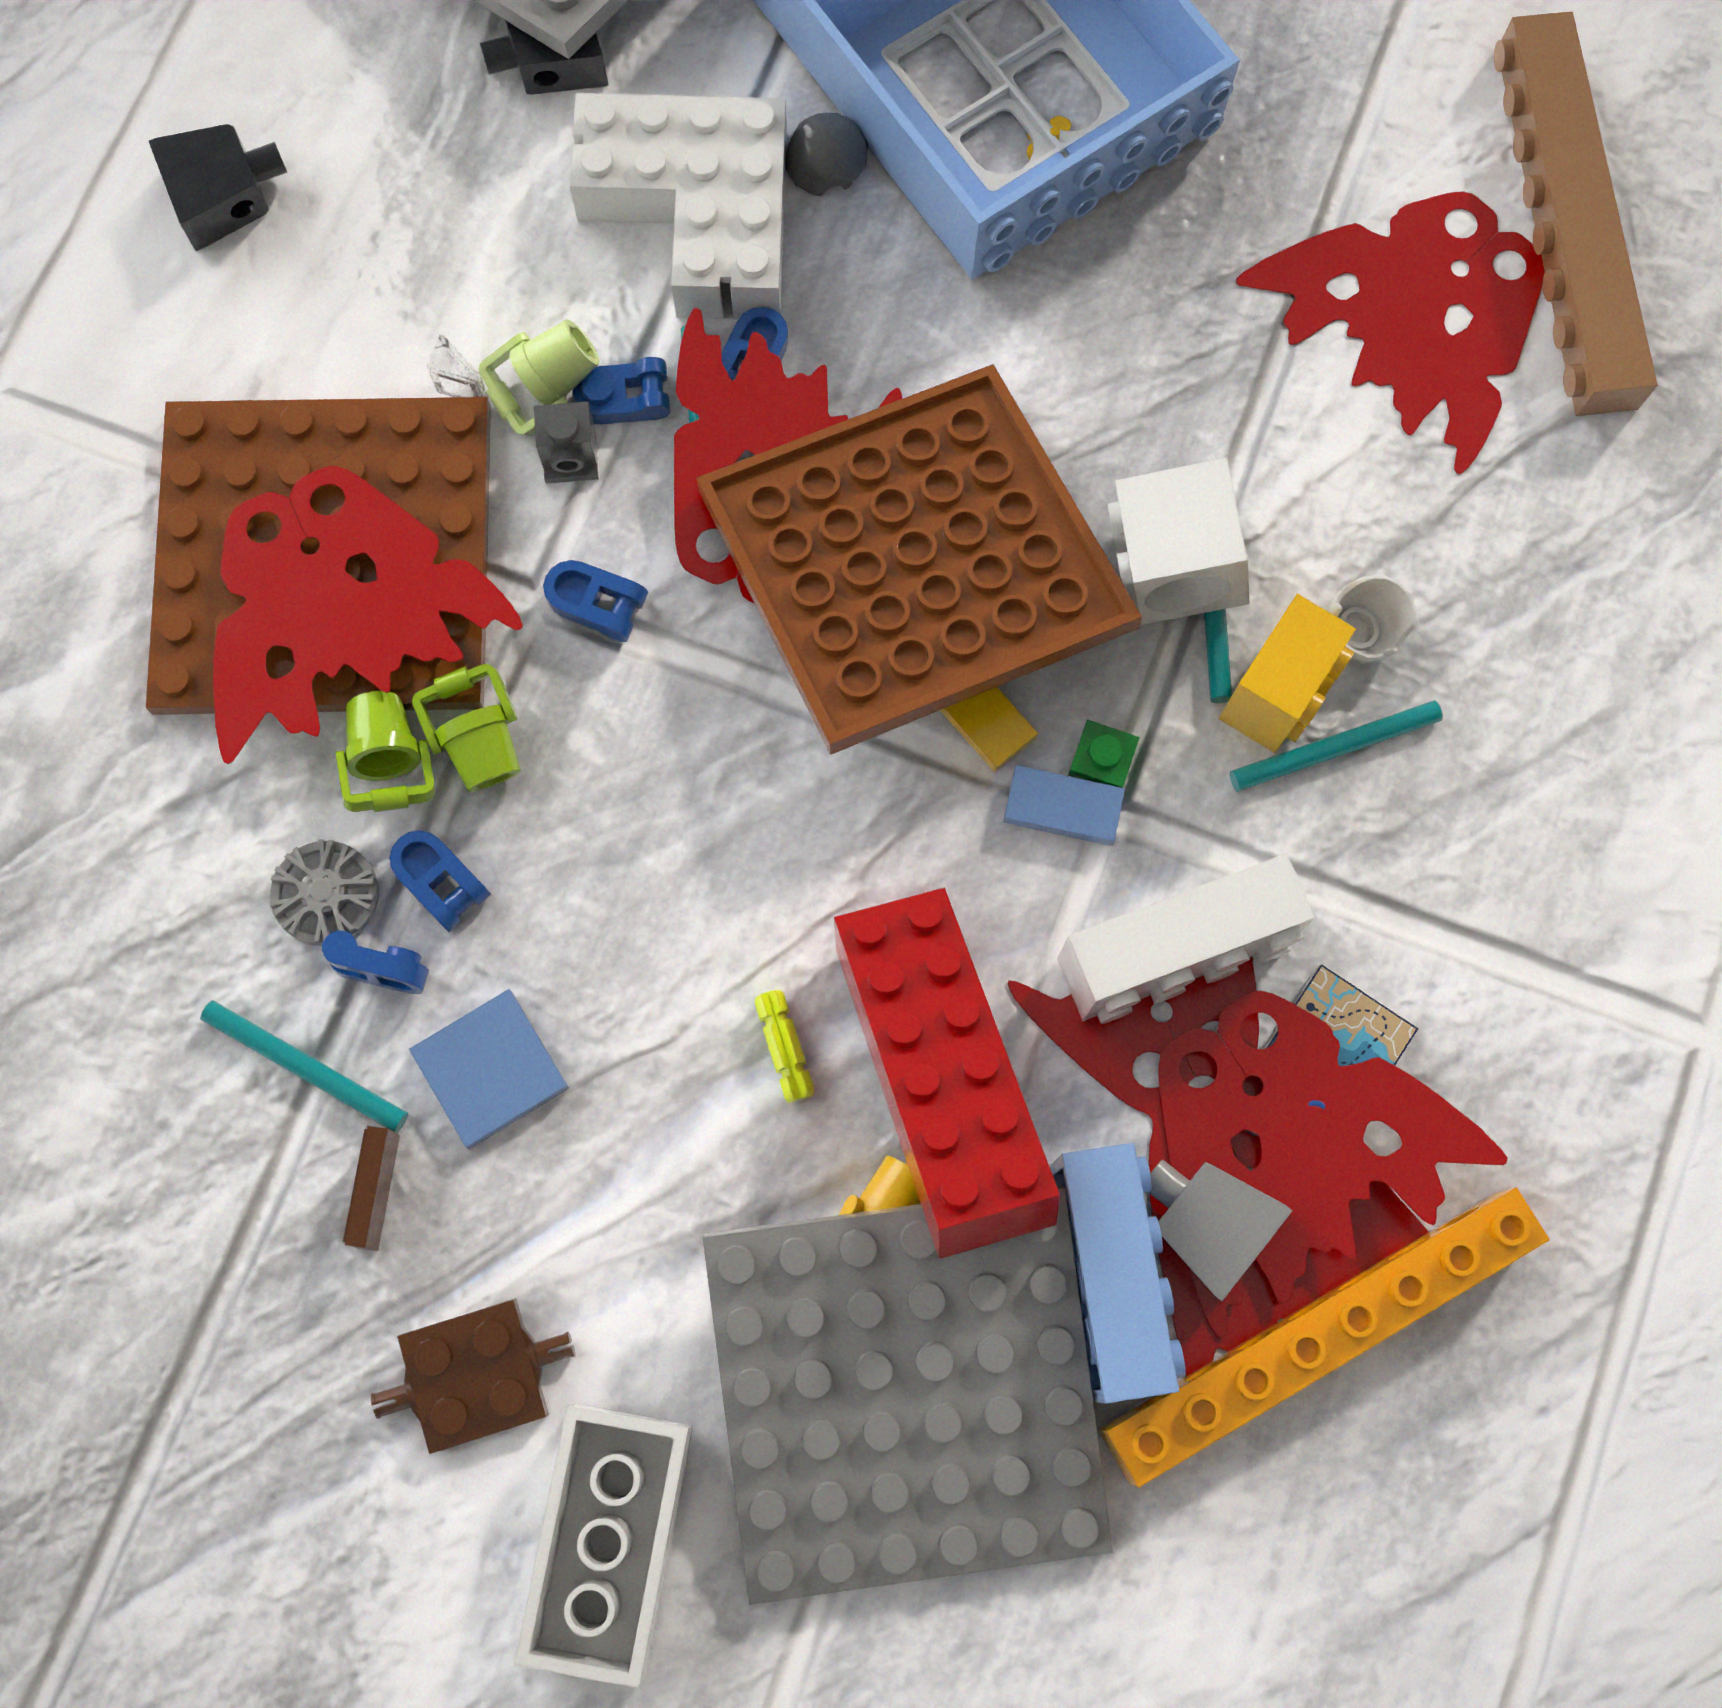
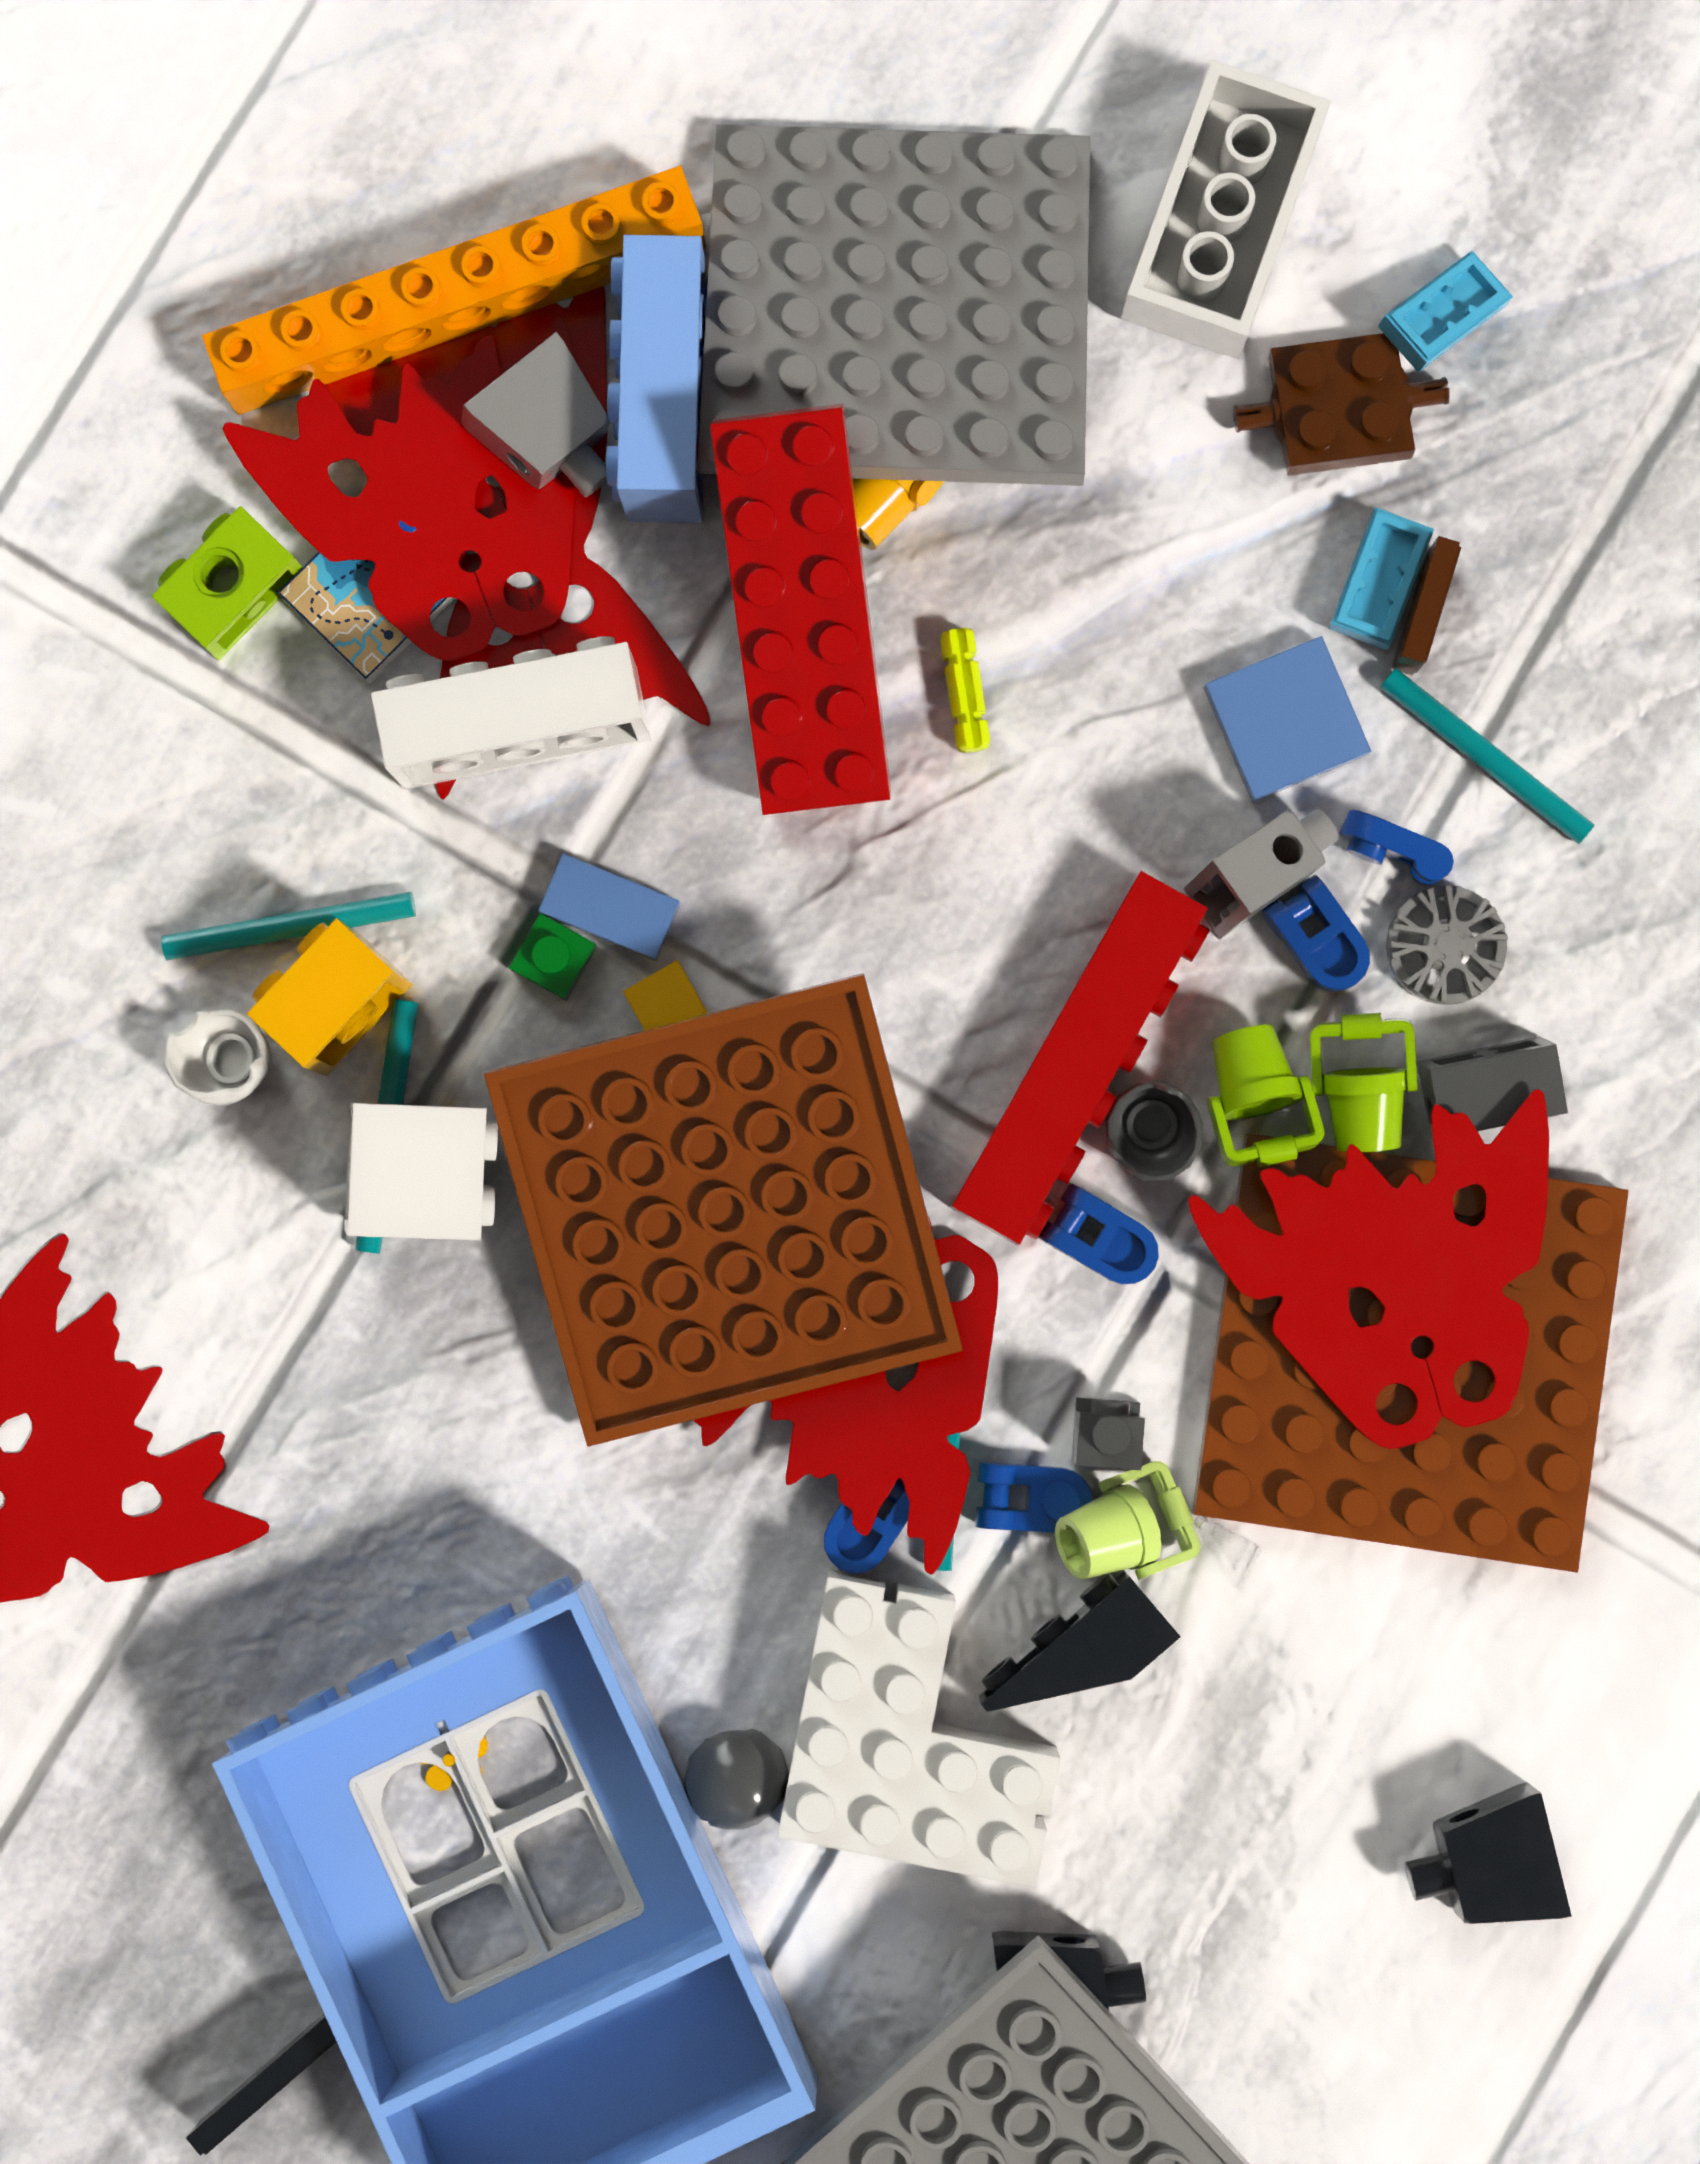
camera: 160 degrees left, 10 degrees up
(271, 777) = (1494, 1081): none -> dark grey hinge
(382, 1482) = (1445, 311): none -> medium azure plate
(416, 1210) = (1381, 578): none -> medium azure plate
(503, 903) = (1261, 869): none -> light grey torso
(559, 685) = (1154, 1131): none -> dark grey hair
(564, 277) = (1097, 1646): none -> black slope
(632, 739) = (1080, 1058): none -> red brick
(1487, 1001) = (225, 617): none -> lime brick

